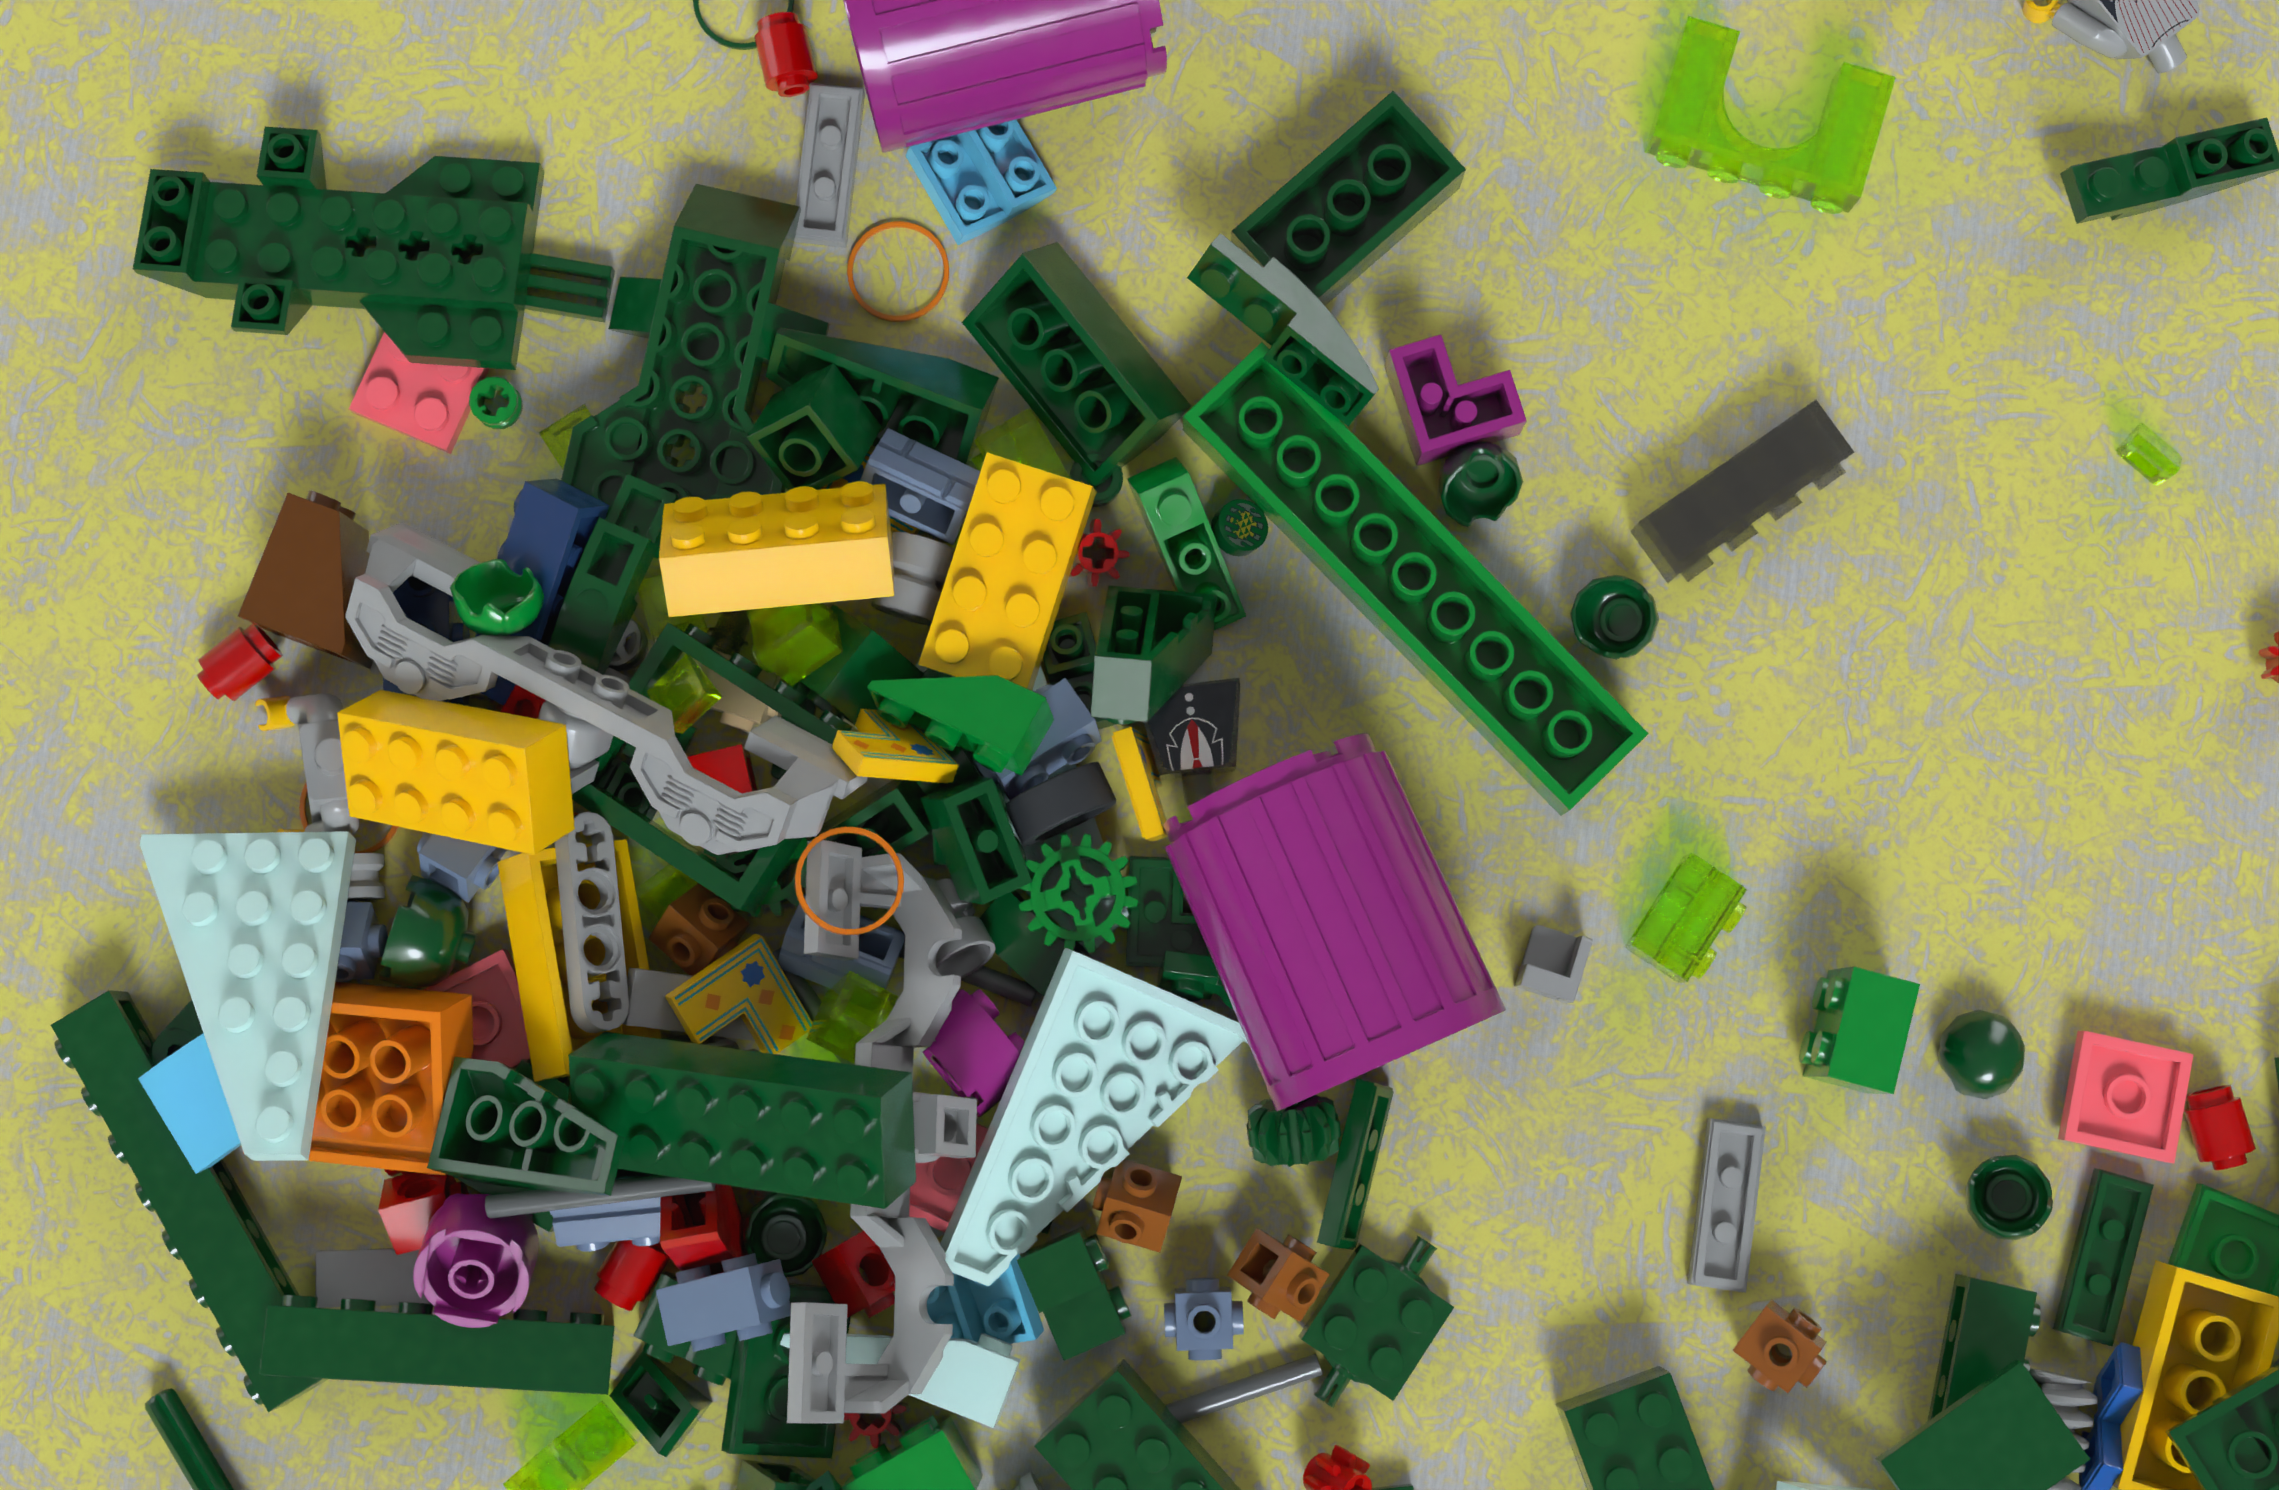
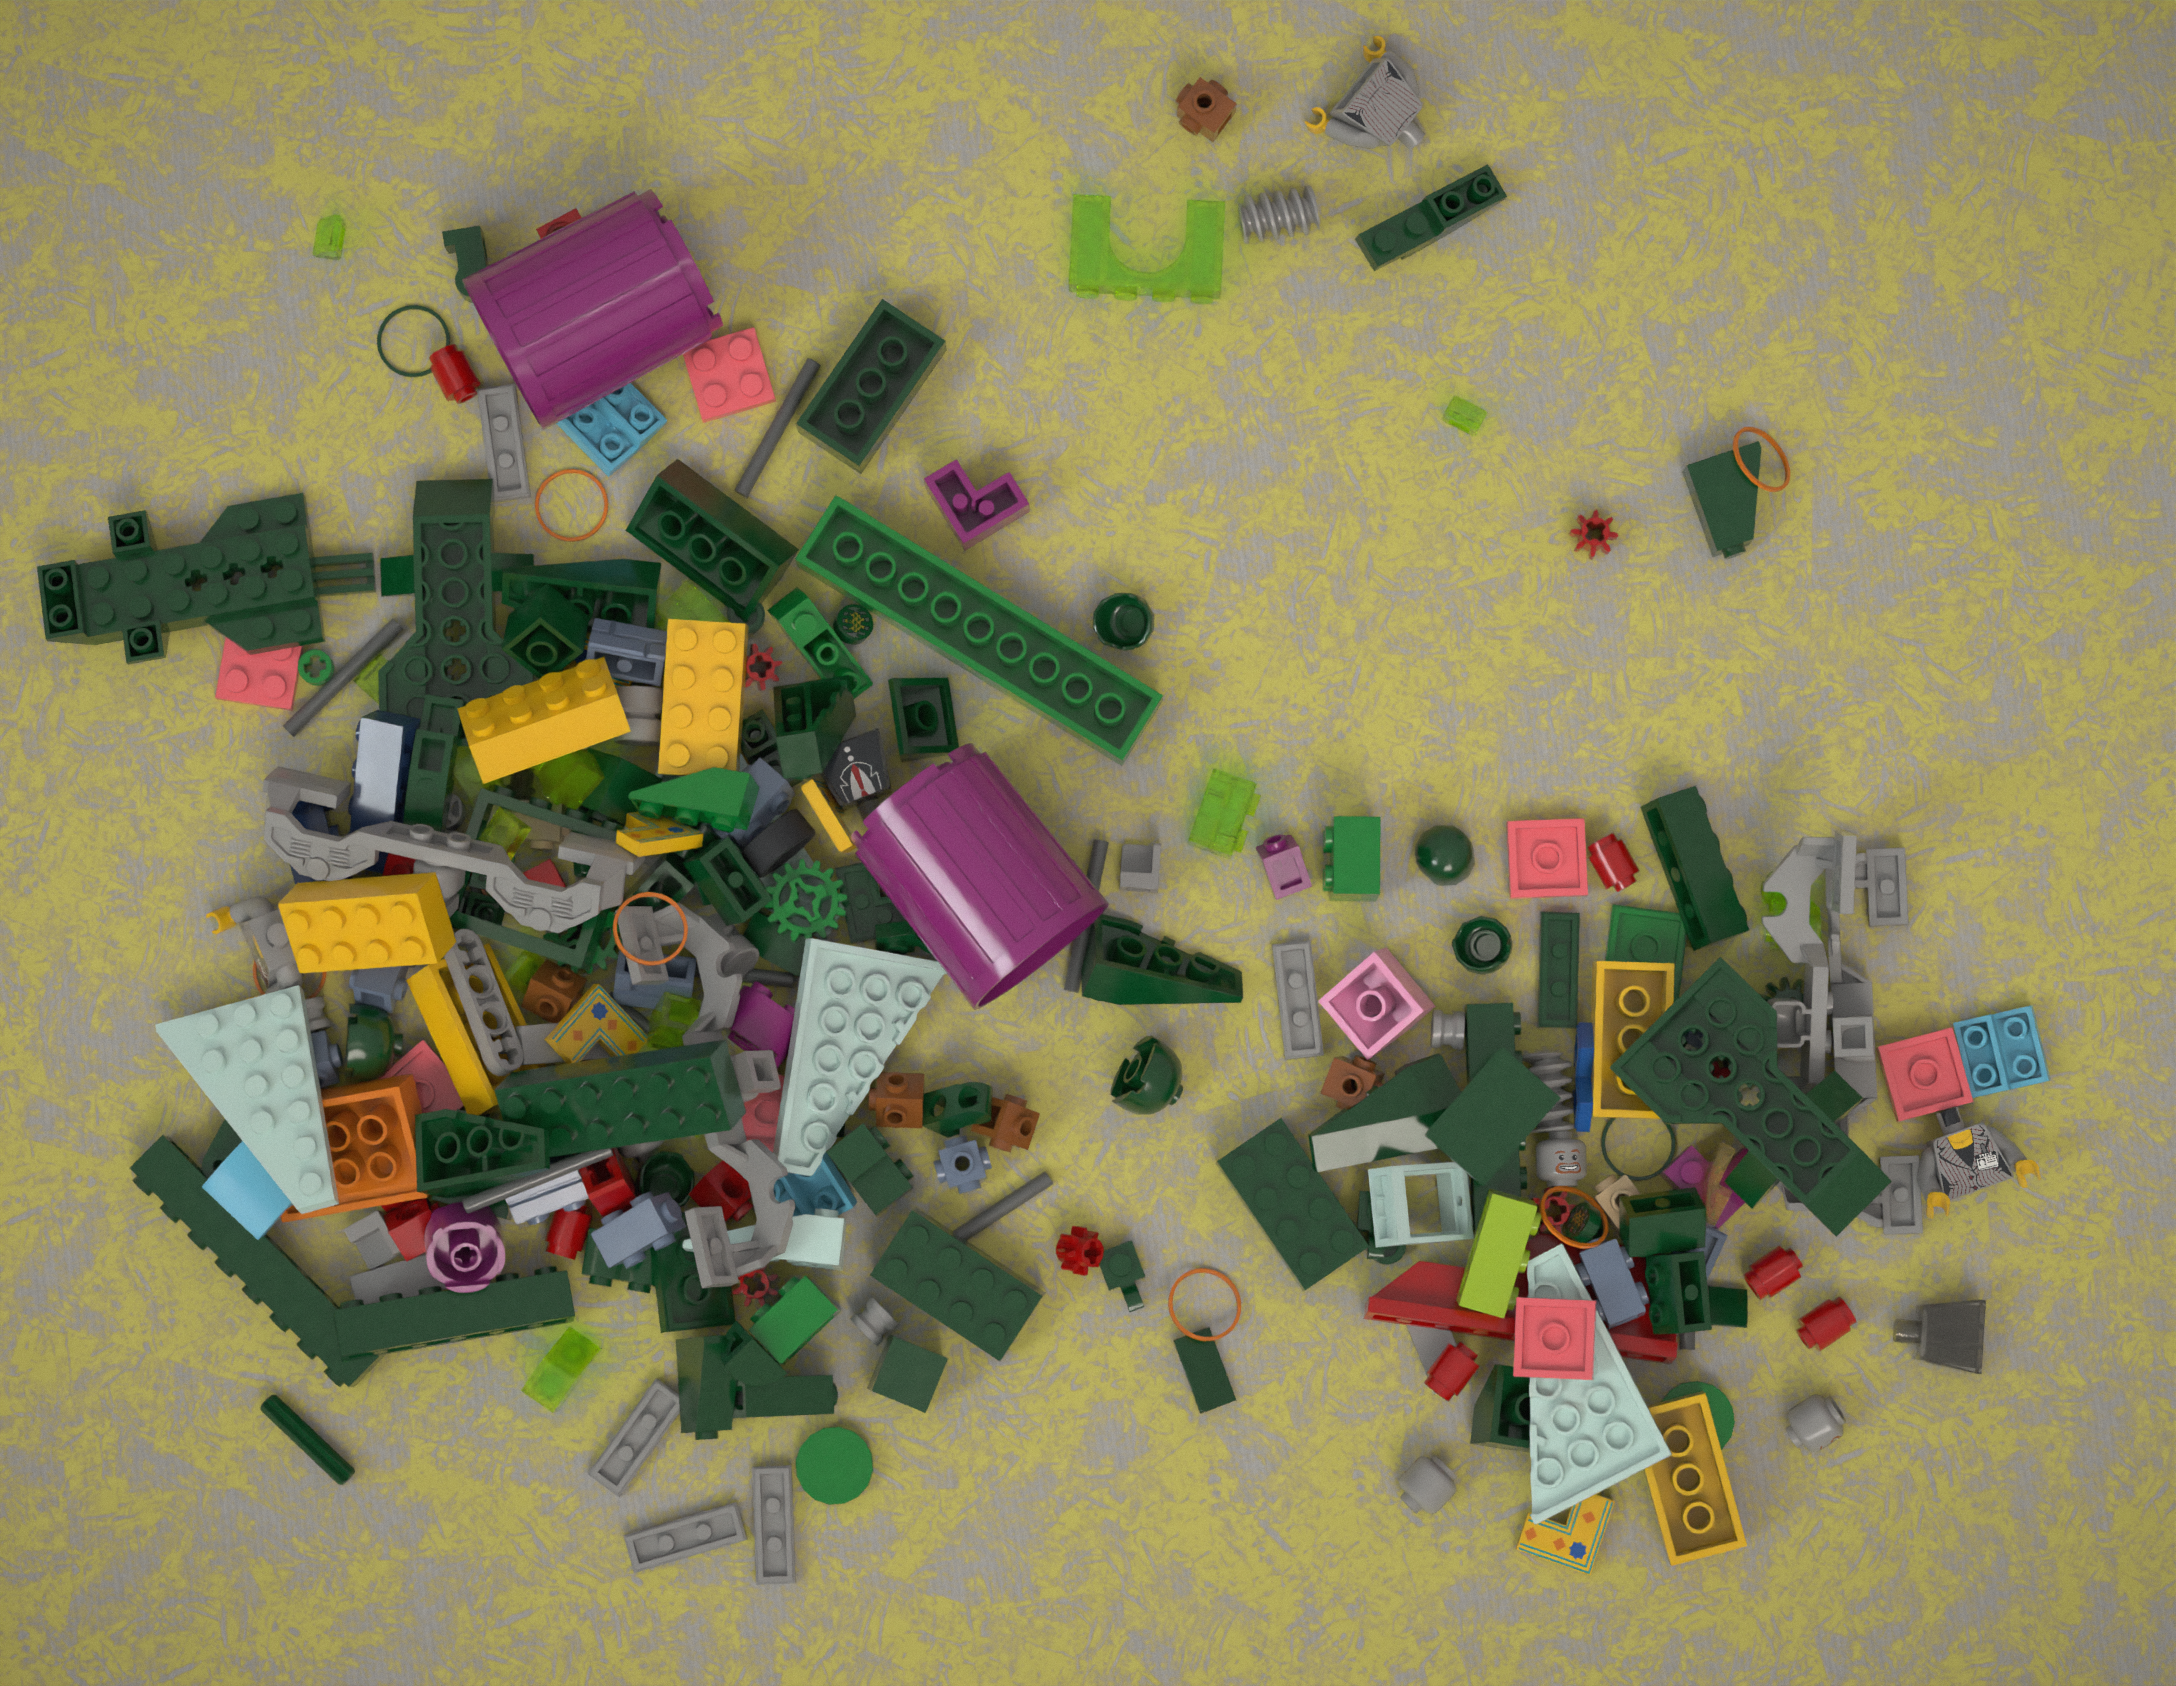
camera: 20 degrees left, 0 degrees up
(238, 662) = (187, 891): red brick -> none
(309, 576) = (228, 822): reddish brown slope -> none
(358, 1208) = (373, 1240): none -> light grey panel
(496, 599) = (363, 801): green hair -> none
(528, 425) = (342, 677): none -> dark grey bar
(659, 1403) = (609, 1316): dark green slope -> none
(1155, 148) = (729, 375): none -> coral plate
(1203, 236) = (777, 427): none -> dark grey bar
(1222, 1238) = (962, 1106): none -> dark green leg
(1293, 1134) = (991, 1023): dark green gear -> none
(1302, 332) = (861, 482): dark green slope -> none
(1303, 679) = (923, 717): none -> dark green slope
(1355, 1165) = (1039, 1036): dark green tile -> none
(1376, 1322) = (1080, 1138): dark green plate -> none
(1443, 1049) = (1079, 946): none -> dark grey bar
(1479, 482) = (1009, 552): dark green hair -> none
(1494, 1265) = (1149, 1080): none -> dark green cylinder
(1520, 1108) = (1138, 969): none -> dark green wedge
(1742, 492) = (1191, 513): clear smoke brick -> none
(1754, 1011) = (1283, 865): none -> bracket
(1829, 1417) = (1389, 1119): none -> dark green wedge
(1840, 1242) = (1376, 1003): none -> bright pink slope
(1930, 1303) = (1447, 1029): none -> light grey wheel
(1963, 112) = (1278, 214): none -> light grey piece

